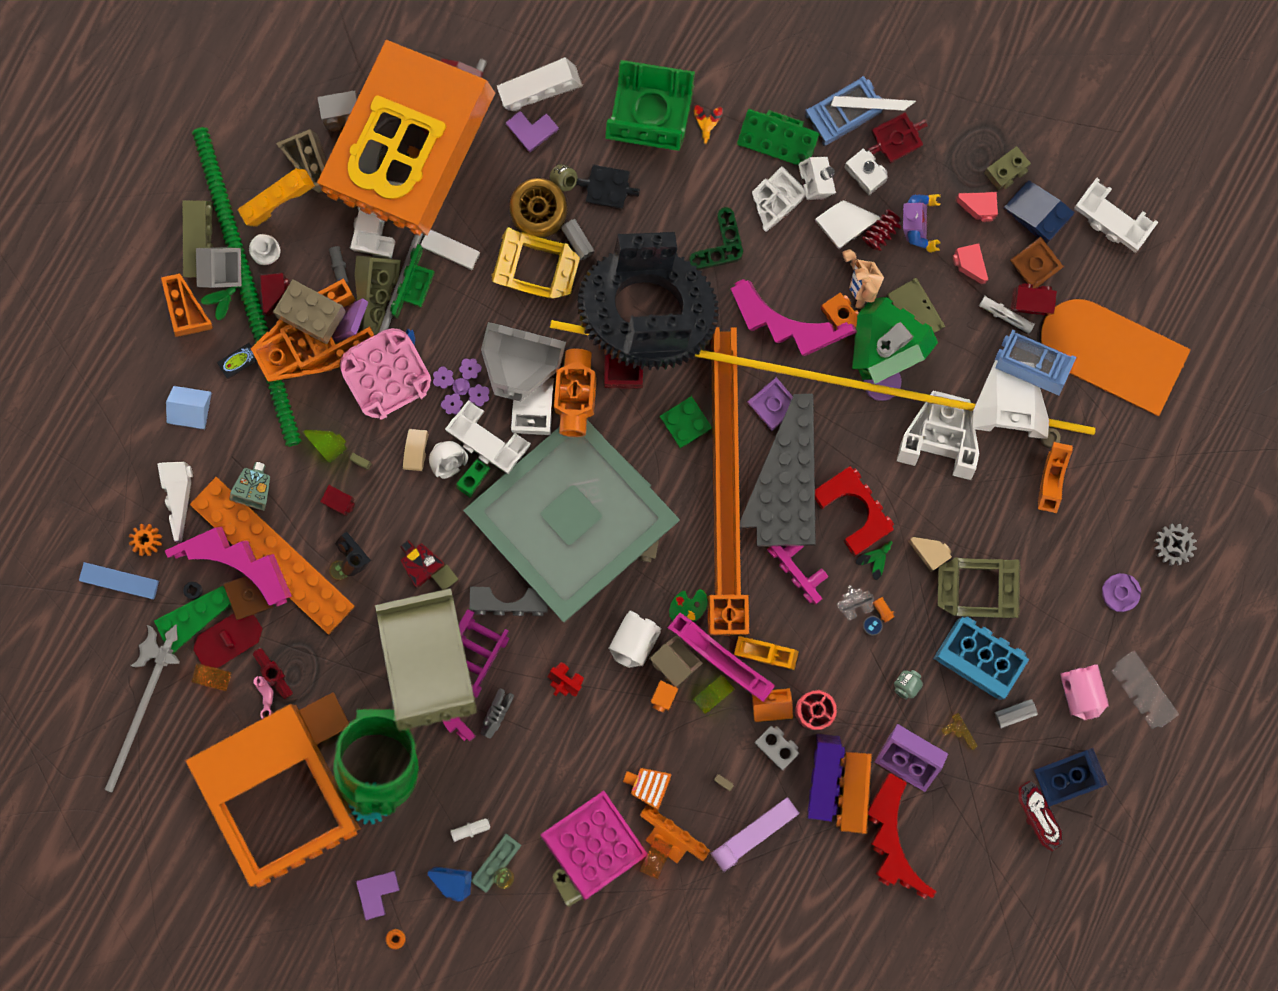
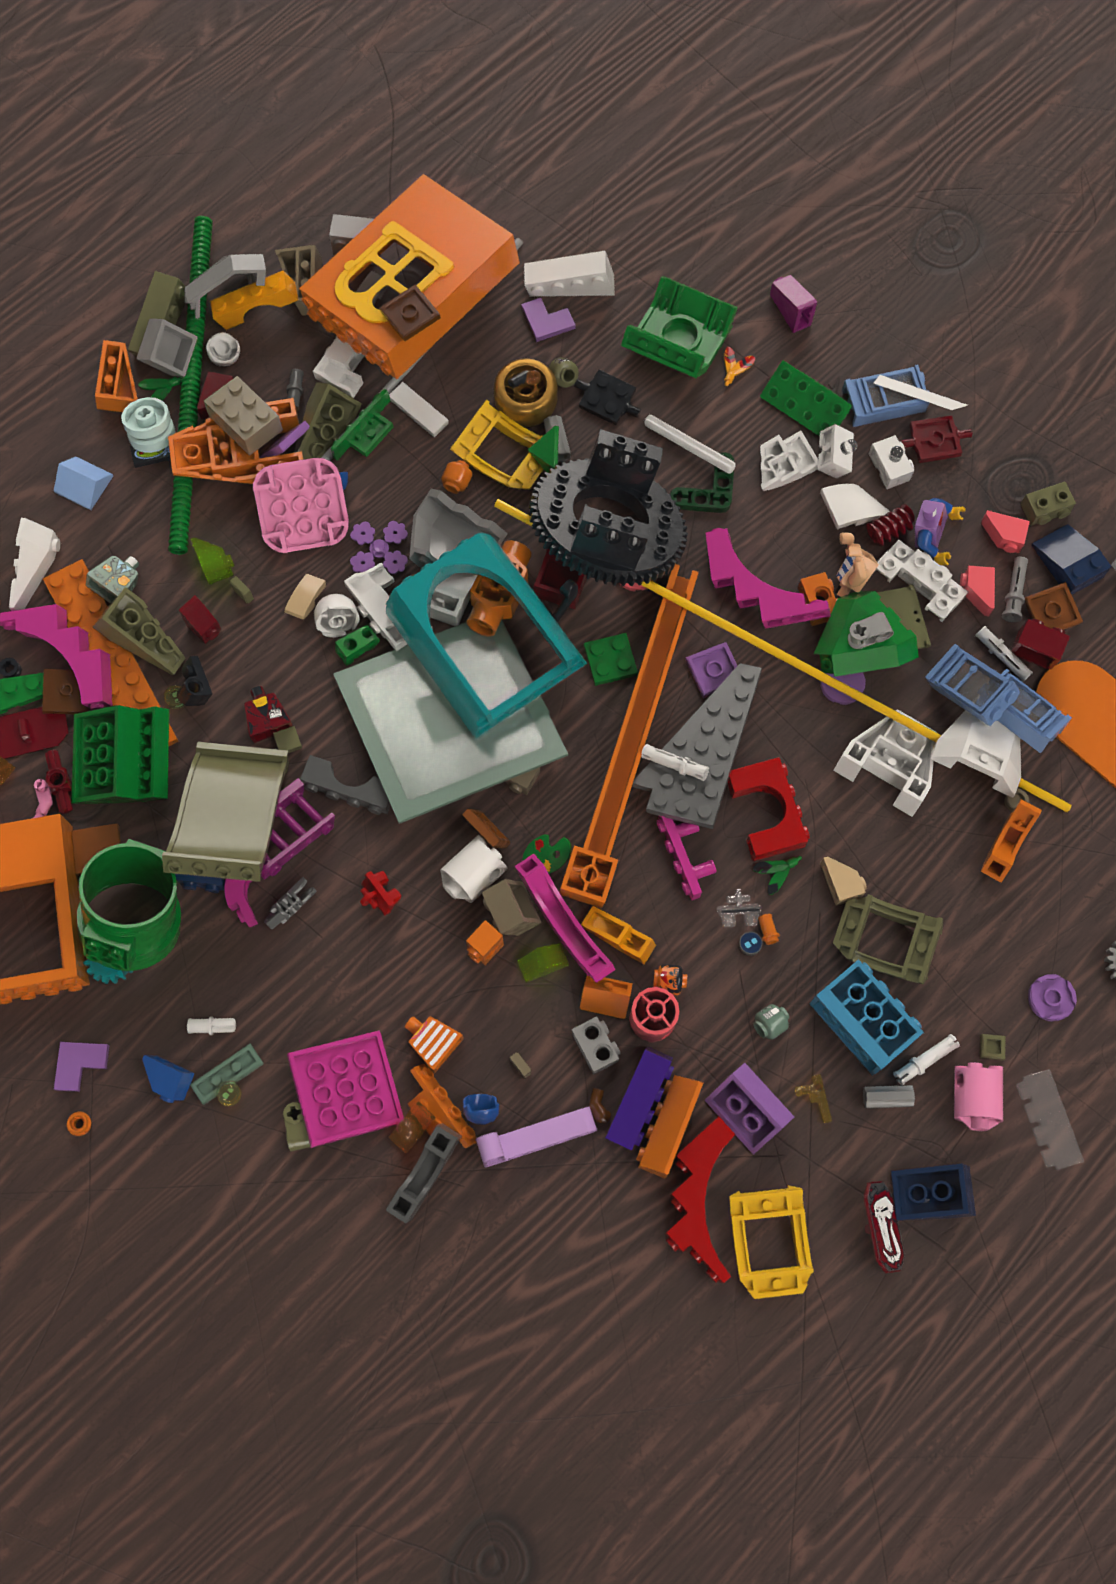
camera: 15 degrees right, 10 degrees down
(227, 340) = (148, 424): none -> light aqua wheel
(244, 183) = (248, 264): none -> light grey panel
(284, 525) = (134, 629): none -> olive wedge
(316, 637) = (120, 755): none -> green slope
(424, 183) = (410, 312): none -> reddish brown plate
(505, 302) = (456, 476): none -> orange head
(514, 445) = (410, 613): none -> teal panel
(534, 199) = (525, 377): none -> arm
(574, 256) = (546, 449): none -> green slope
(634, 602) = (486, 828): none -> dark orange tile
(636, 381) = (569, 590): none -> black bar
(678, 890) = (424, 1174): none -> dark grey arch
(691, 209) = (690, 444): none -> white axle
(704, 826) = (480, 1108): none -> blue hair
(739, 47) = (793, 302): none -> magenta slope
(777, 501) = (680, 764): none -> white pin
(794, 797) = (598, 1110): none -> reddish brown arm
(818, 676) = (670, 978): none -> head
(923, 267) = (926, 576): none -> white bracket
(947, 829) = (766, 1205): none -> yellow wedge
(989, 355) = (972, 685): none -> medium blue door
(1002, 262) = (1015, 597): none -> light grey pin
(1036, 675) = (919, 1064): none -> white pin
(1085, 647) = (992, 1047): none -> olive tile

